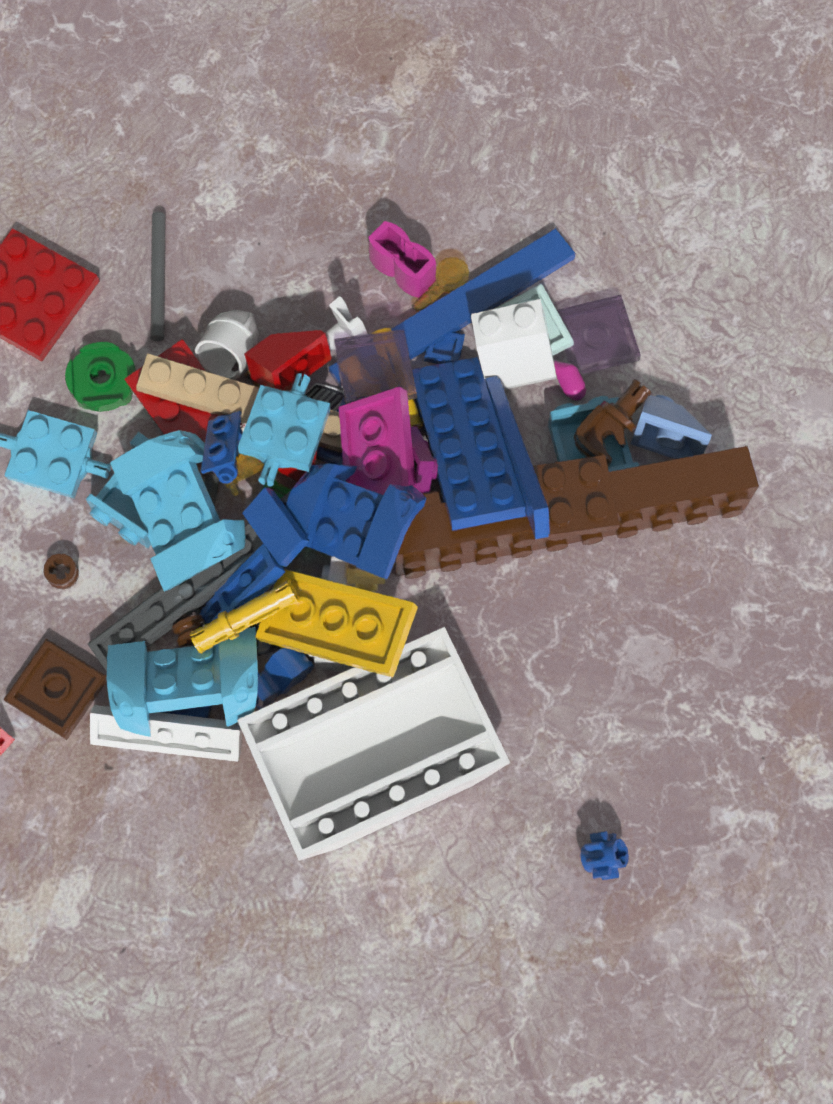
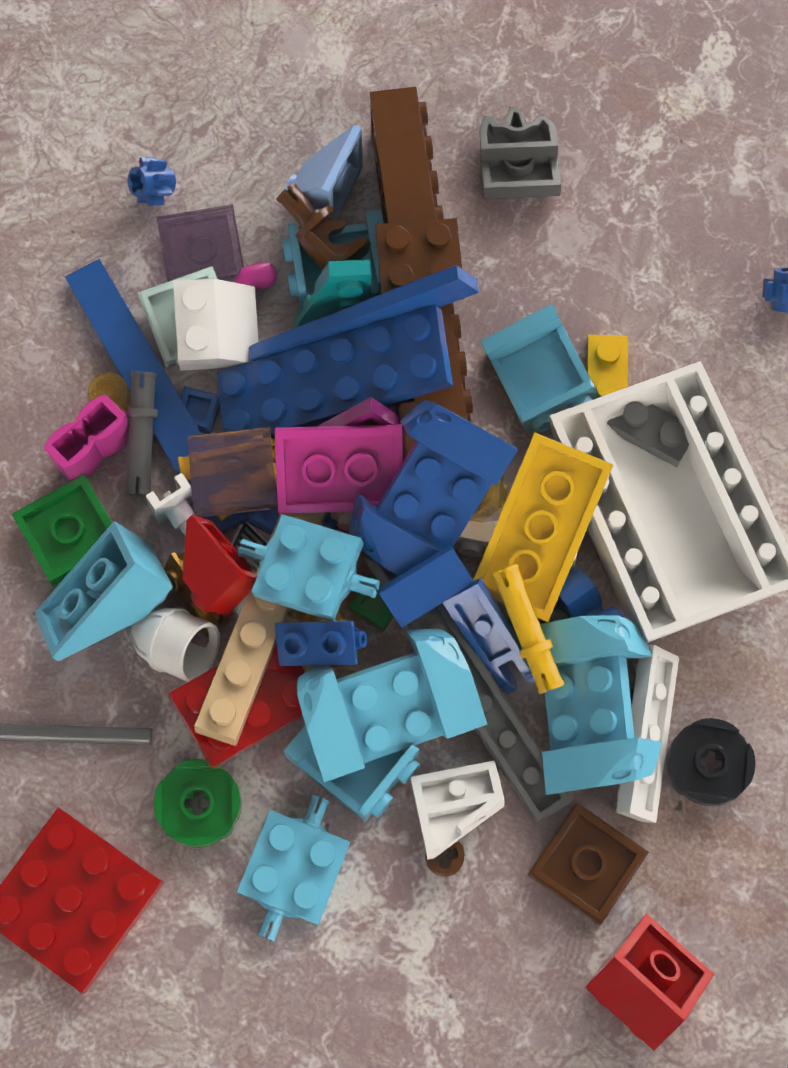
camera: 85 degrees left, 0 degrees up
(101, 573) = (455, 803): none -> white wing
(128, 773) = (729, 746): none -> black plate
(184, 628) = (528, 703): reddish brown bush -> none
(268, 285) = (103, 593): none -> medium azure slope
(327, 256) = (63, 526): none -> green plate
(416, 299) = (140, 433): none -> dark grey pin
(445, 726) = (652, 431): none -> dark grey plate
(500, 628) = (539, 368): none -> medium azure panel
(509, 690) = (607, 362): none -> yellow plate
(544, 438) = (336, 288): none -> teal wing
(652, 285) = (151, 181): none -> blue gear
(718, 599) = (519, 157): none -> dark grey plate

